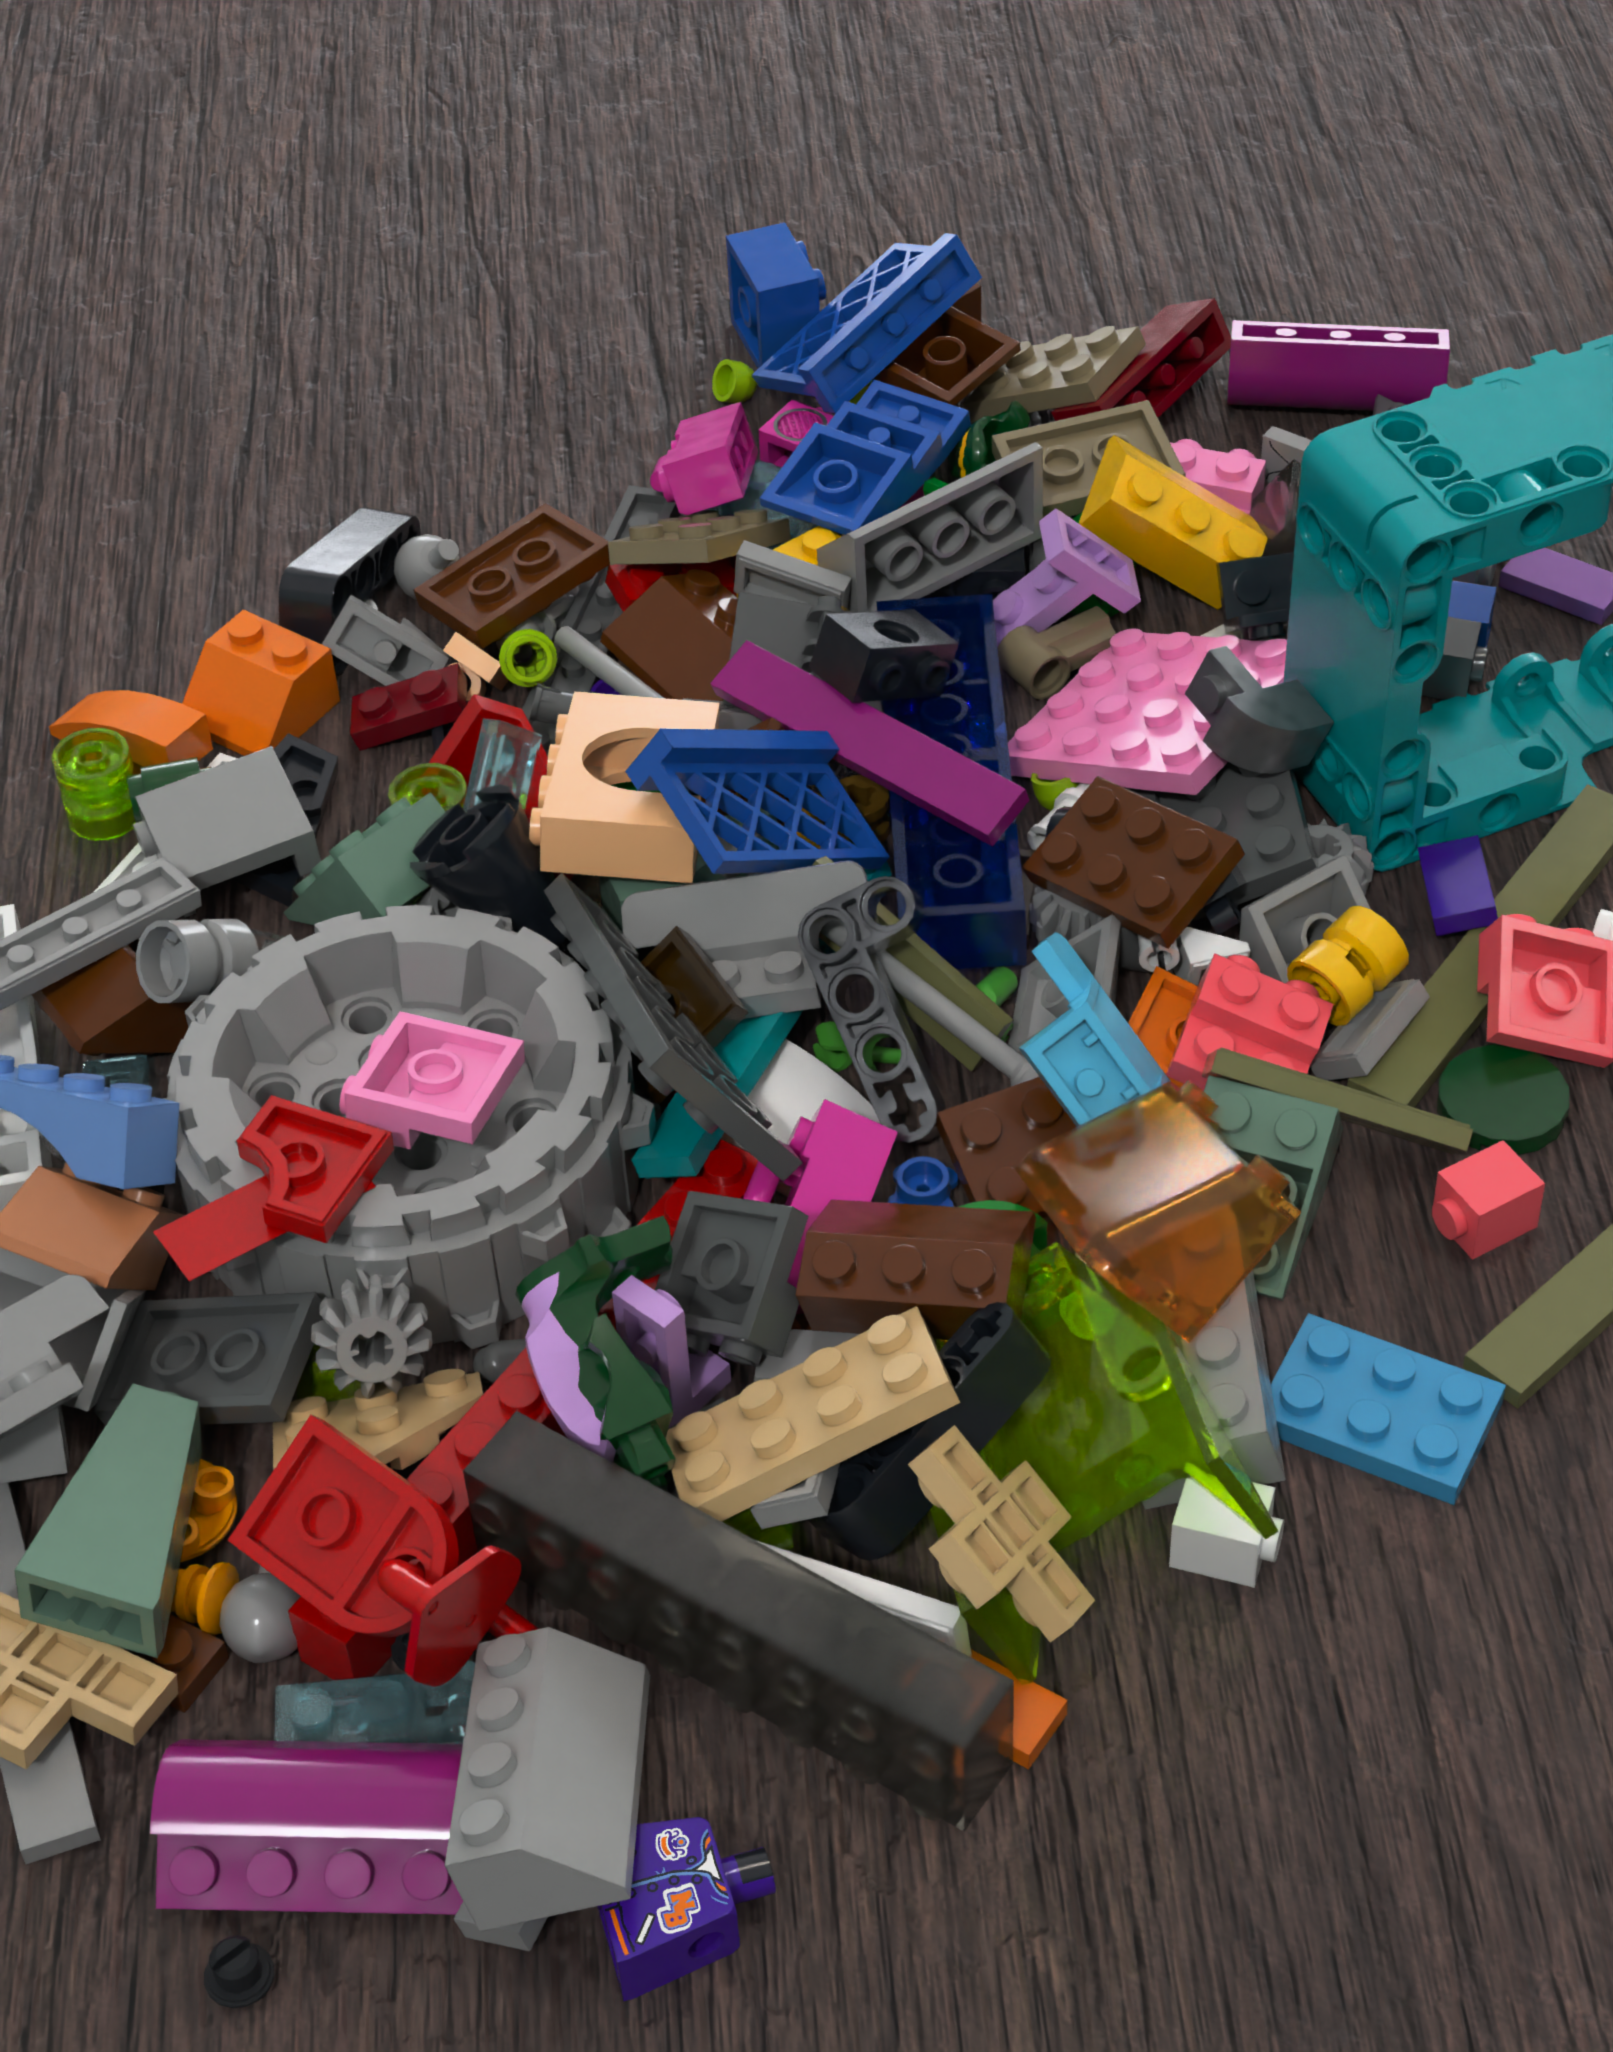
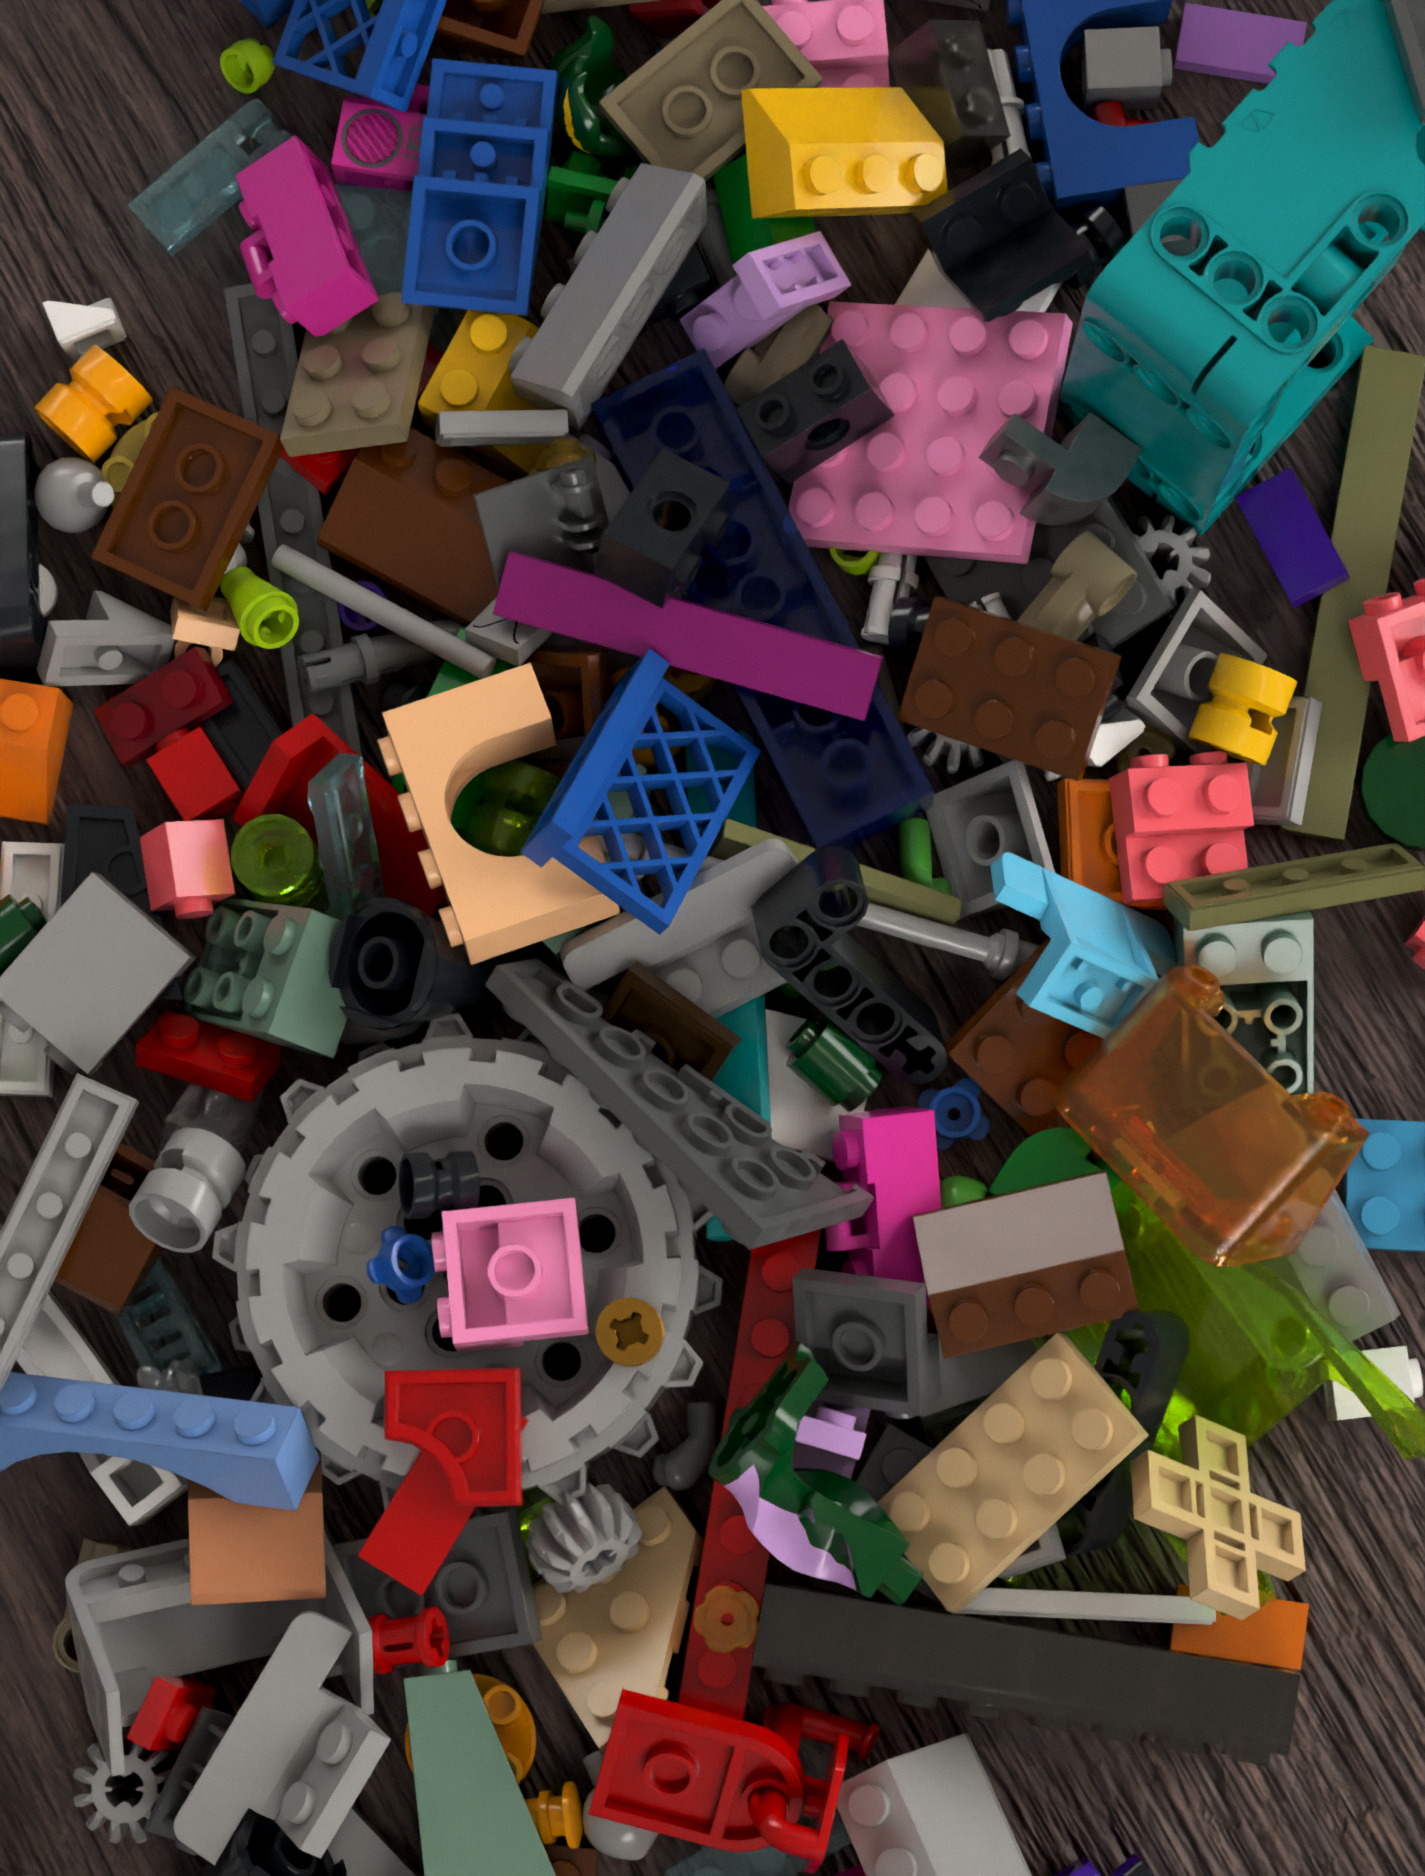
camera: 20 degrees left, 35 degrees up
(158, 1365) = (409, 1640): none -> red bush
(270, 913) = (208, 1055): none -> red plate
(339, 1055) = (417, 1262): none -> blue plate
(353, 796) = (187, 867): none -> coral brick
(397, 744) = (195, 776): none -> red brick
(404, 995) = (439, 1184): none -> black wheel
(454, 1452) = (708, 1619): none -> clear yellow plate
(478, 515) = (93, 403): none -> light orange wheel
(507, 480) = (82, 326): none -> white slope
(508, 1138) = (638, 1338): none -> pearl gold wheel
(644, 433) = (205, 180): none -> clear light blue plate
(822, 1071) = (832, 1063): none -> dark green brick
(1048, 682) = (815, 412): none -> black brick
(1244, 806) = (1085, 584): none -> dark tan piece

